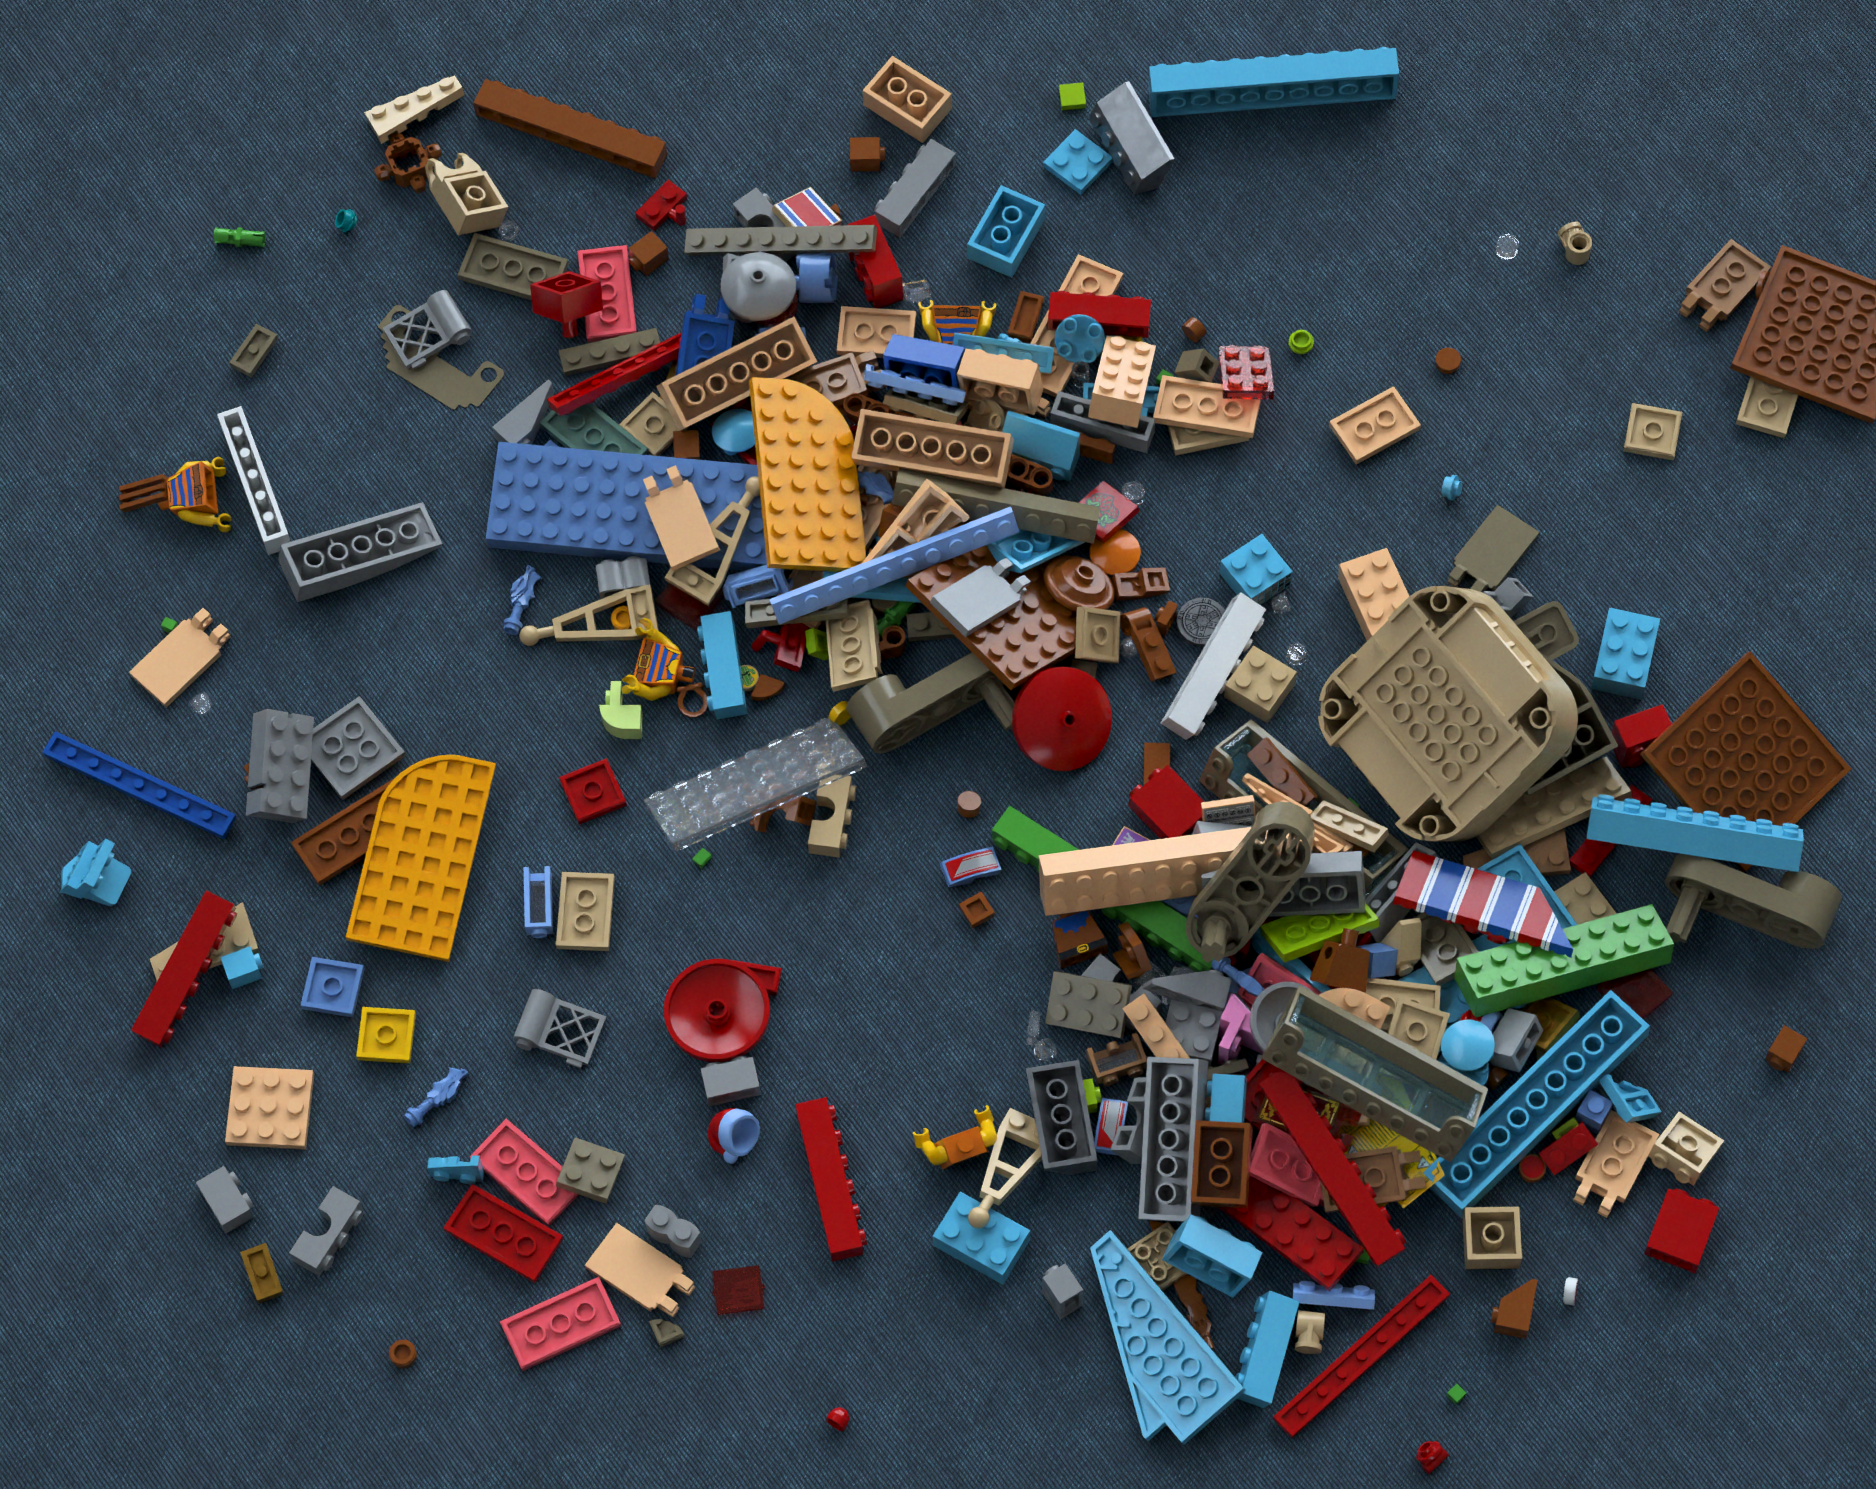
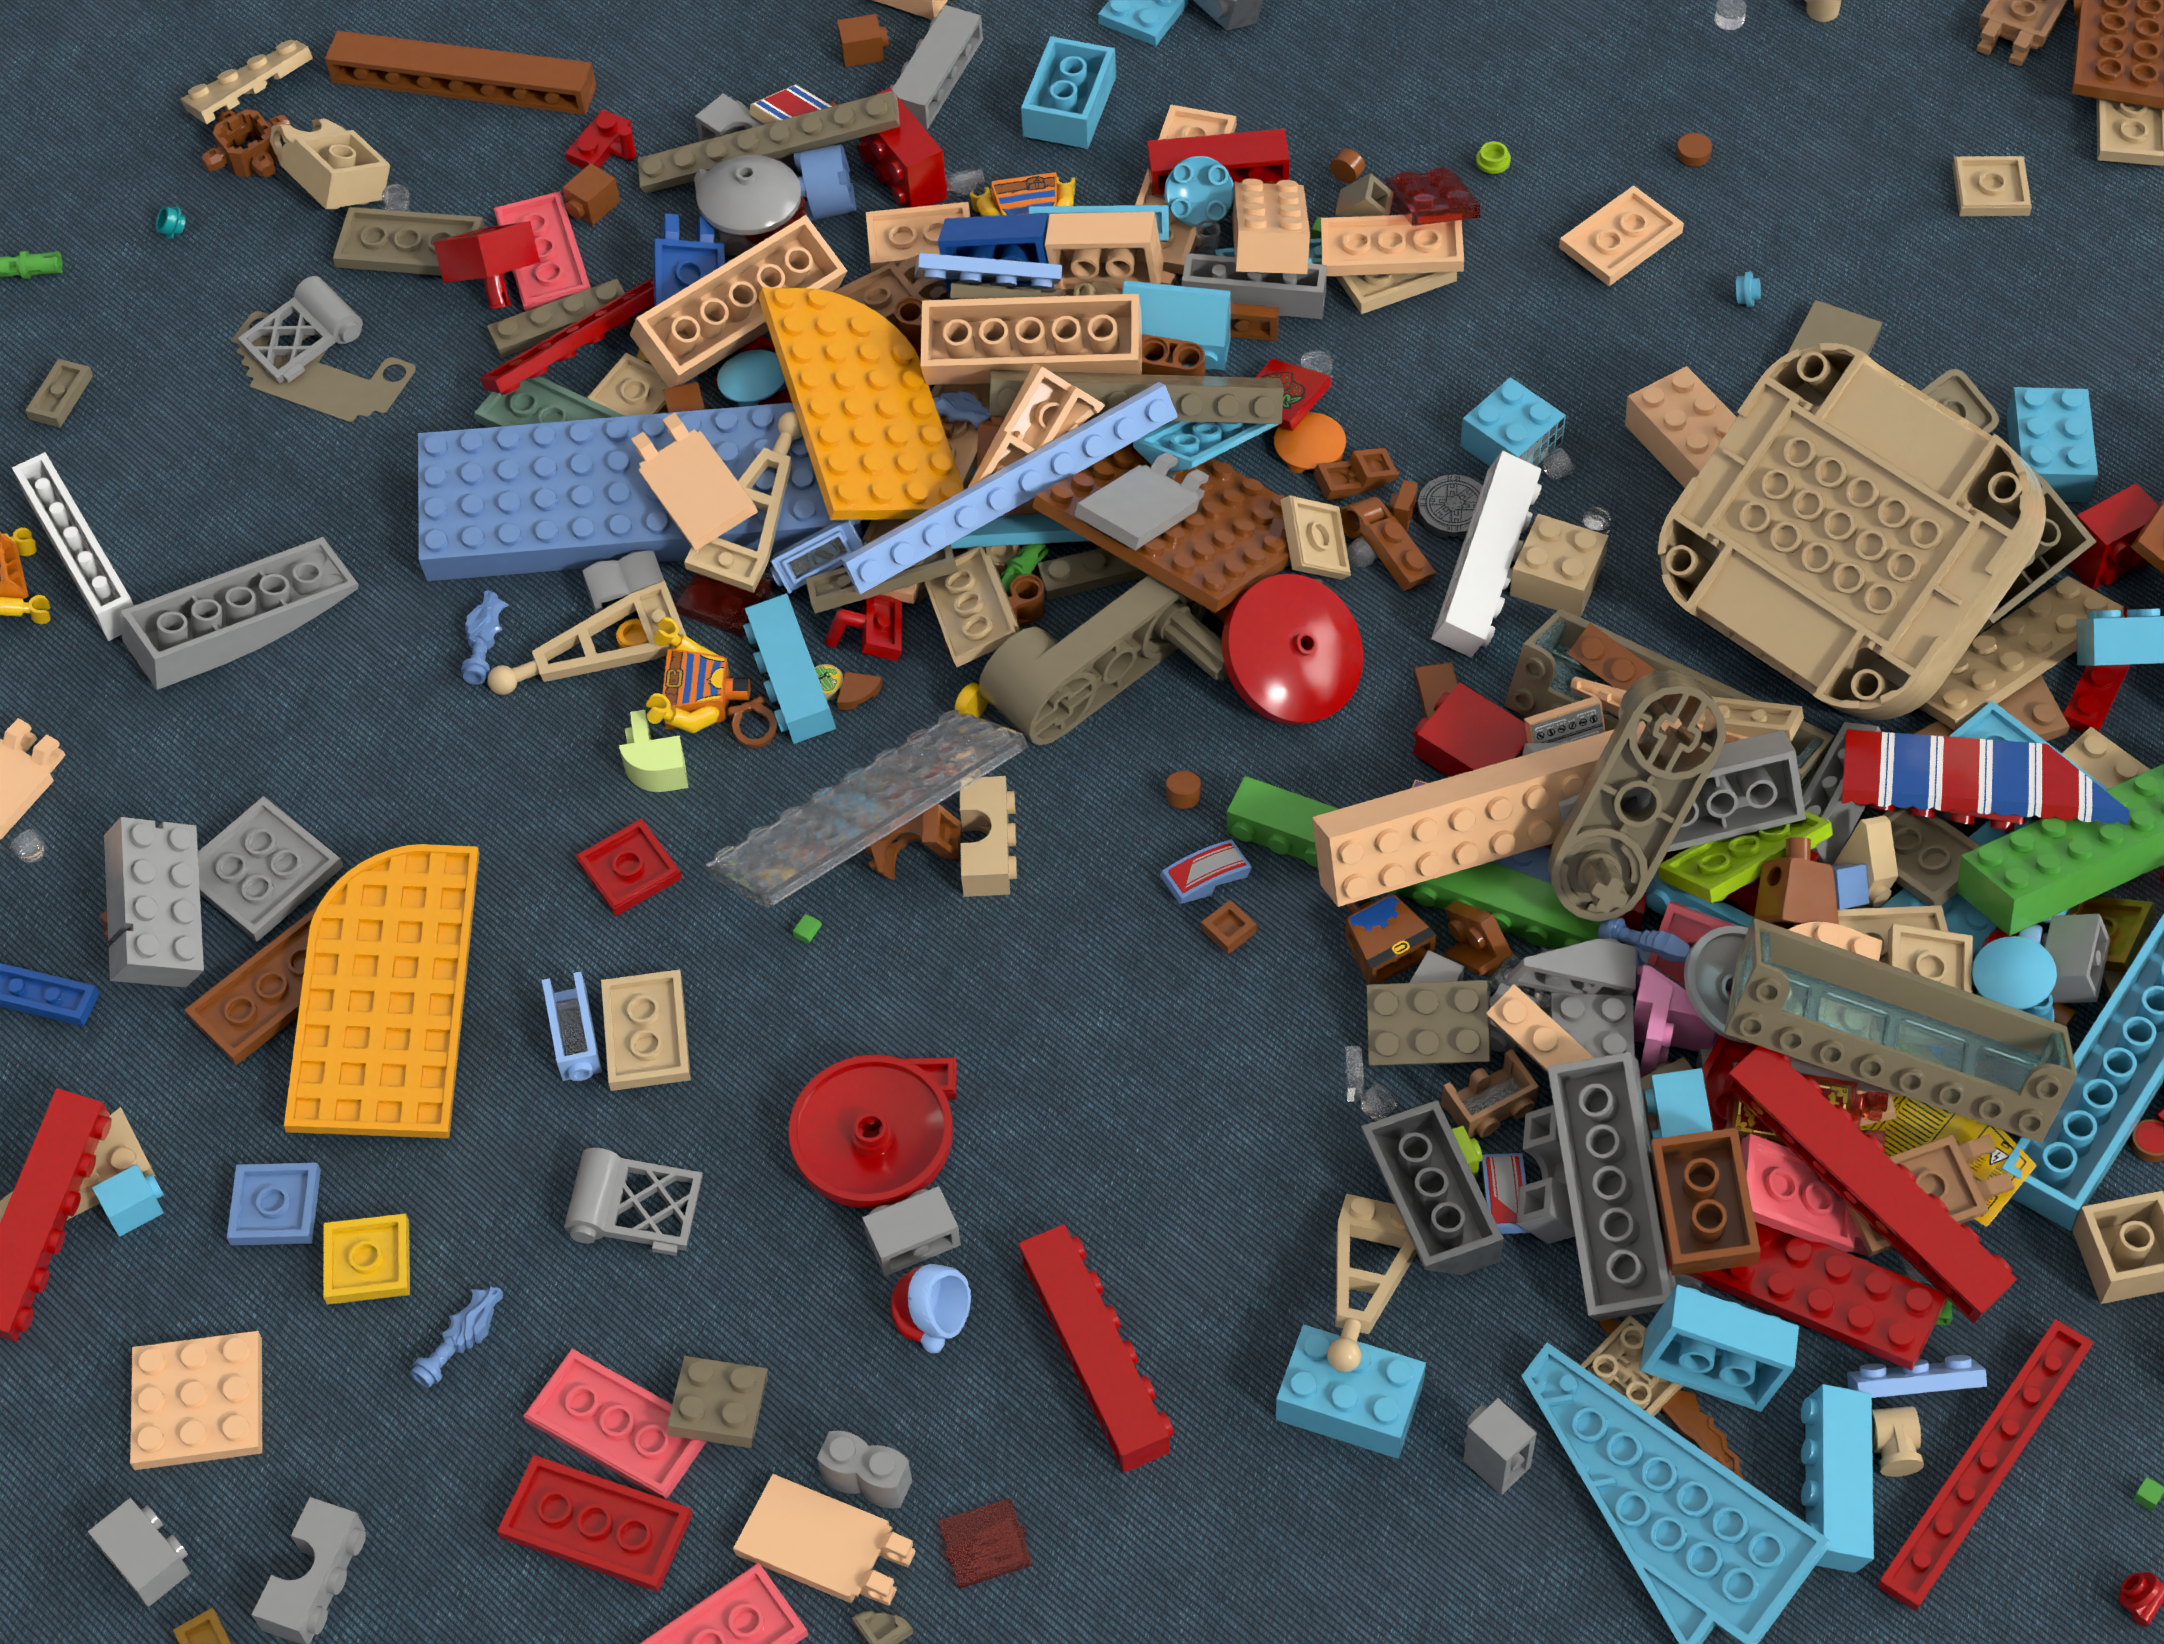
camera: 10 degrees left, 10 degrees down
(452, 1168) = (498, 1437): medium azure wing -> none
(524, 420) = (454, 404): light grey slope -> none
(817, 643) = (920, 619): lime plate -> none
(962, 1145) = (1284, 1260): torso -> none
(1026, 316) = (1117, 183): dark orange tile -> none
(1078, 583) = (1268, 477): dark orange piece -> none

